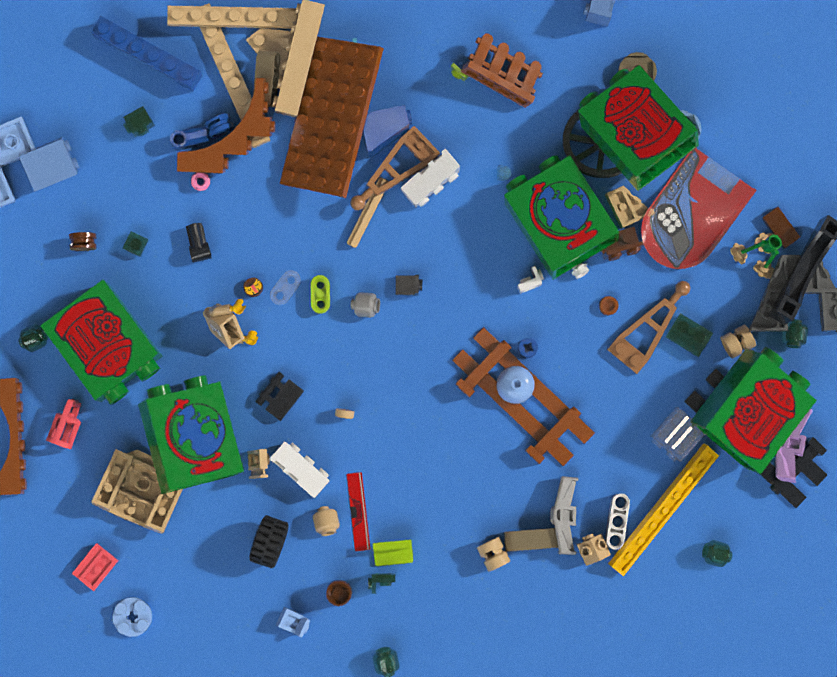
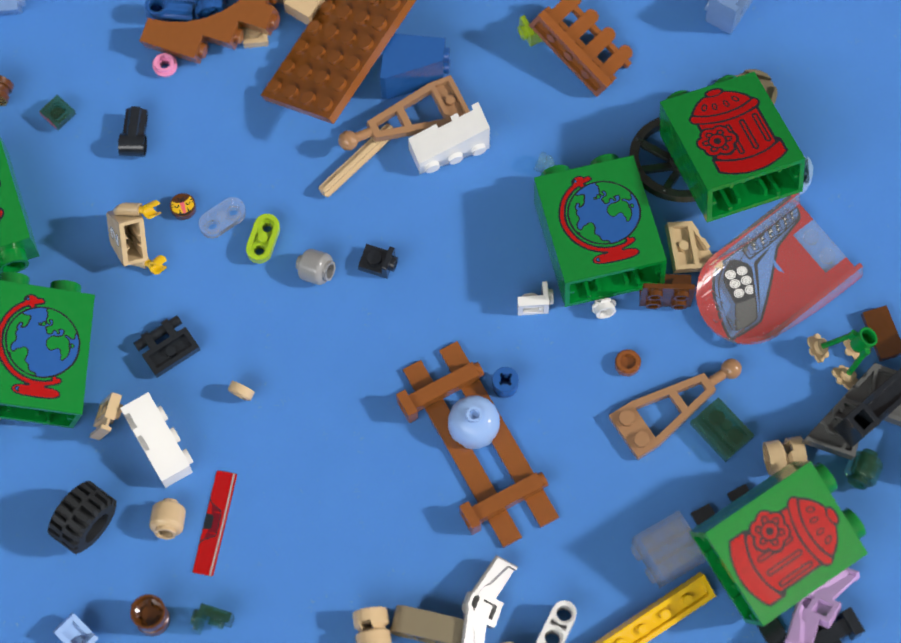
camera: 20 degrees right, 15 degrees down
(393, 552) = (241, 587): lime panel -> none

